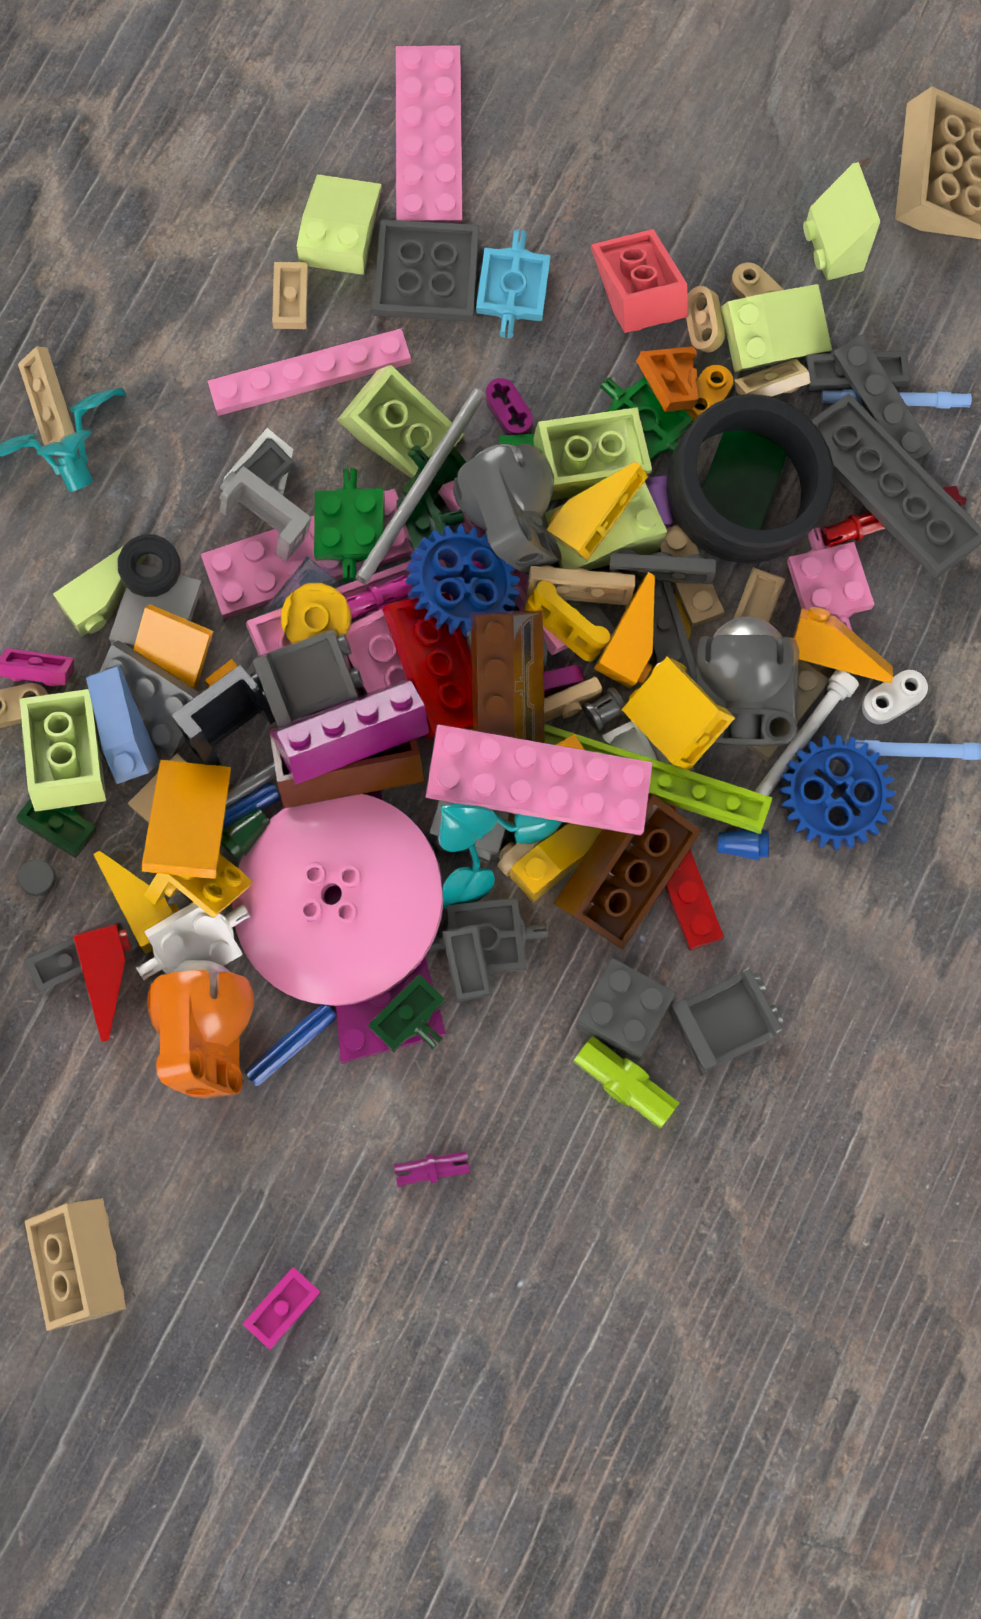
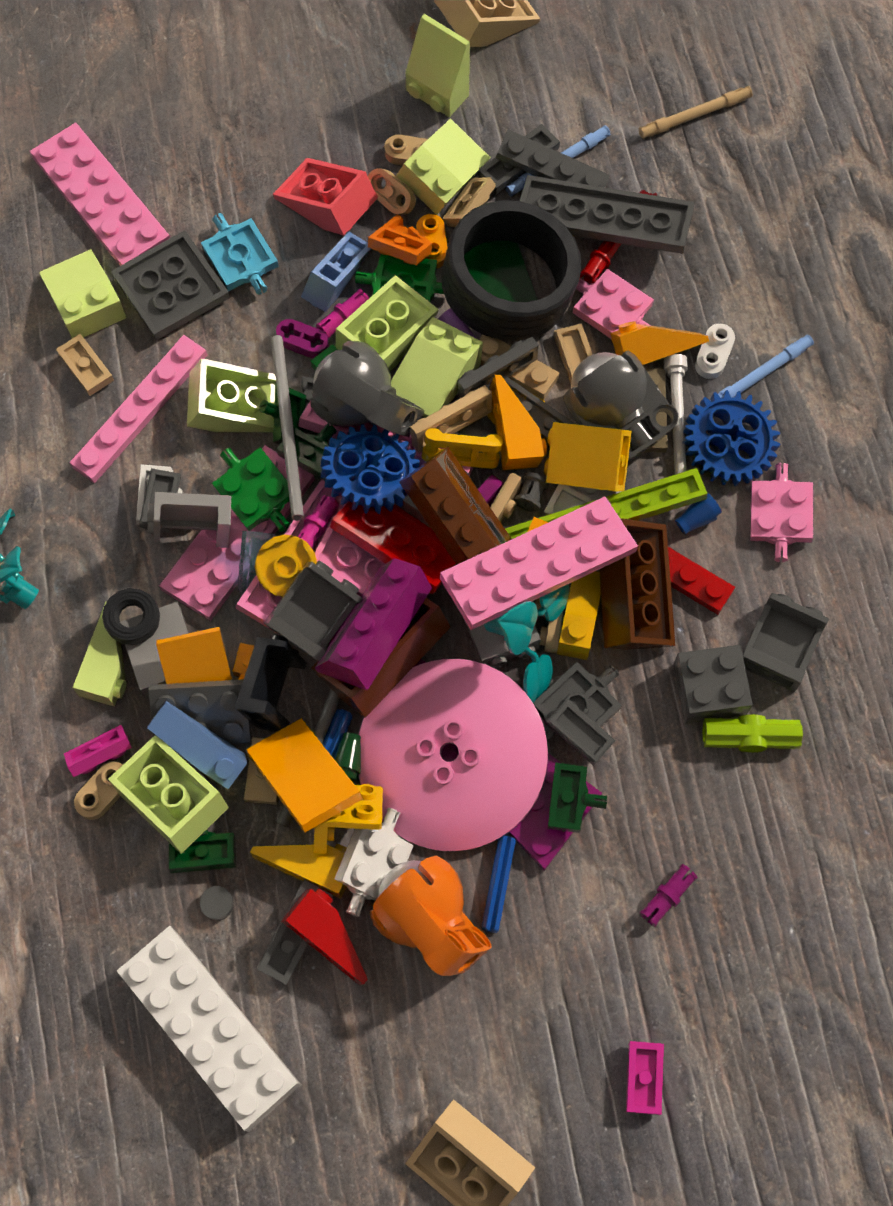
camera: 35 degrees left, 5 degrees down
(564, 409) = (342, 312): none -> dark pink pin
(588, 363) = (335, 271): none -> medium blue slope
(592, 513) = (424, 360): yellow slope -> none
(828, 898) = (781, 512): none -> bright pink plate

